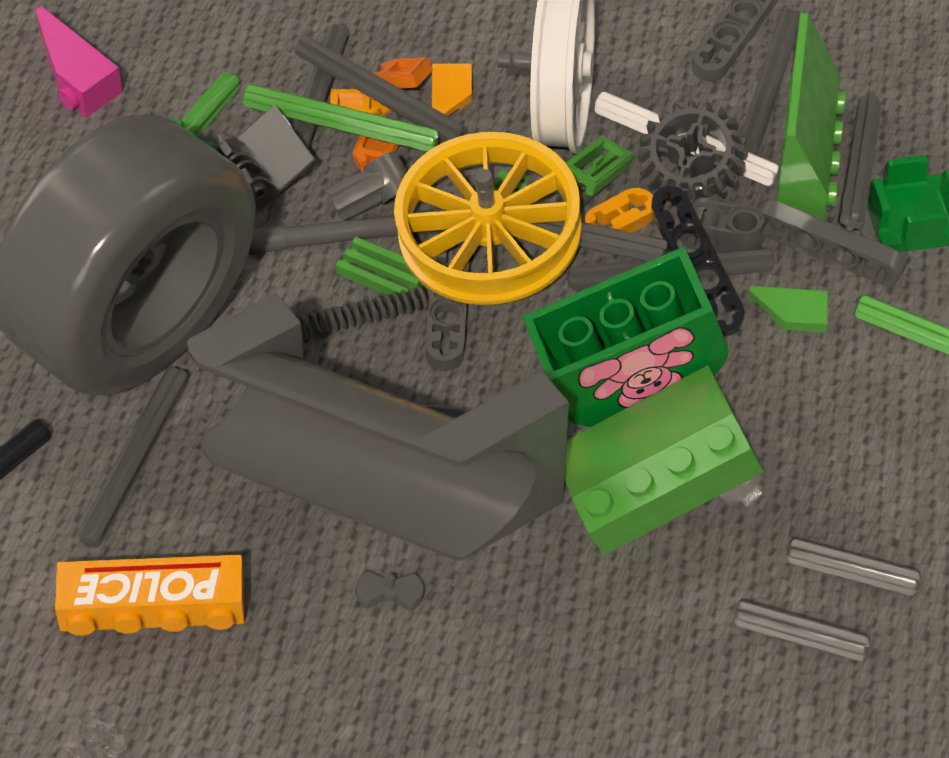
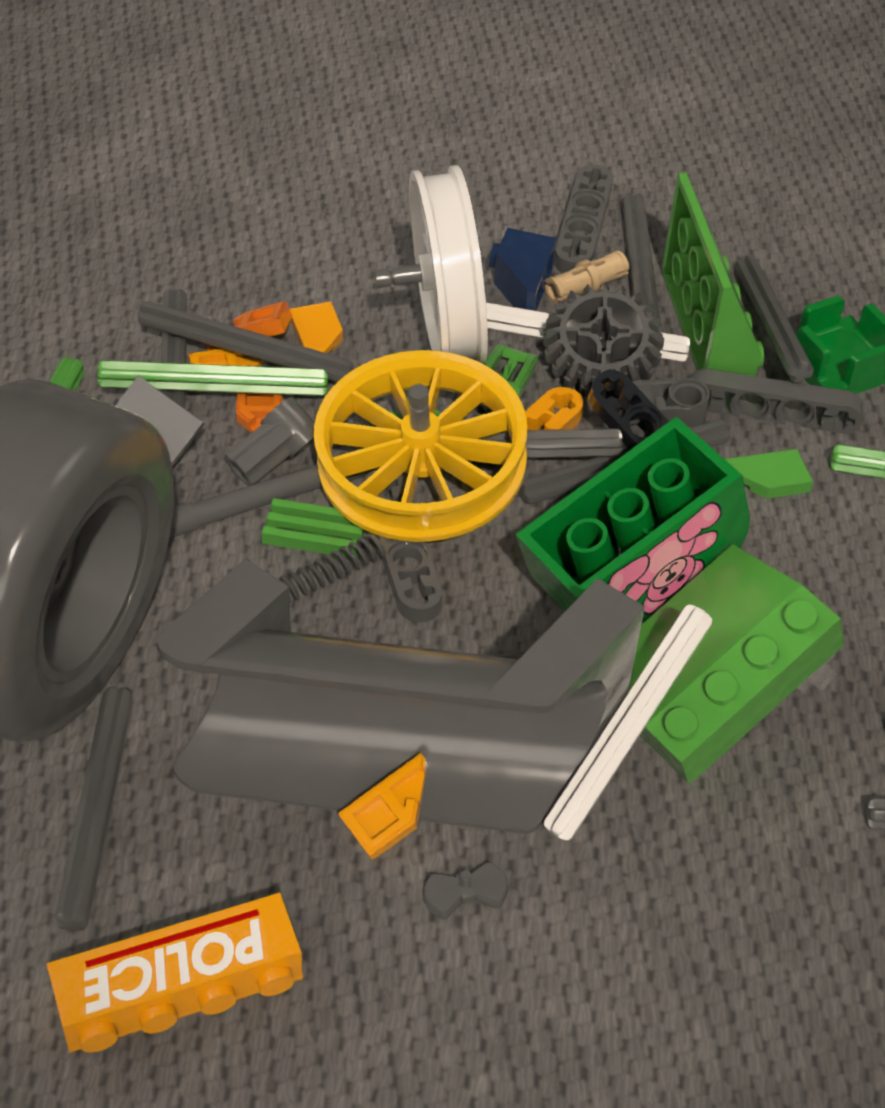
camera: 20 degrees left, 5 degrees down
(352, 514) = (388, 809): none -> light orange tile
(559, 490) = (627, 723): none -> white axle
(656, 65) = (522, 266): none -> dark blue slope
(712, 85) = (586, 272): none -> tan pin

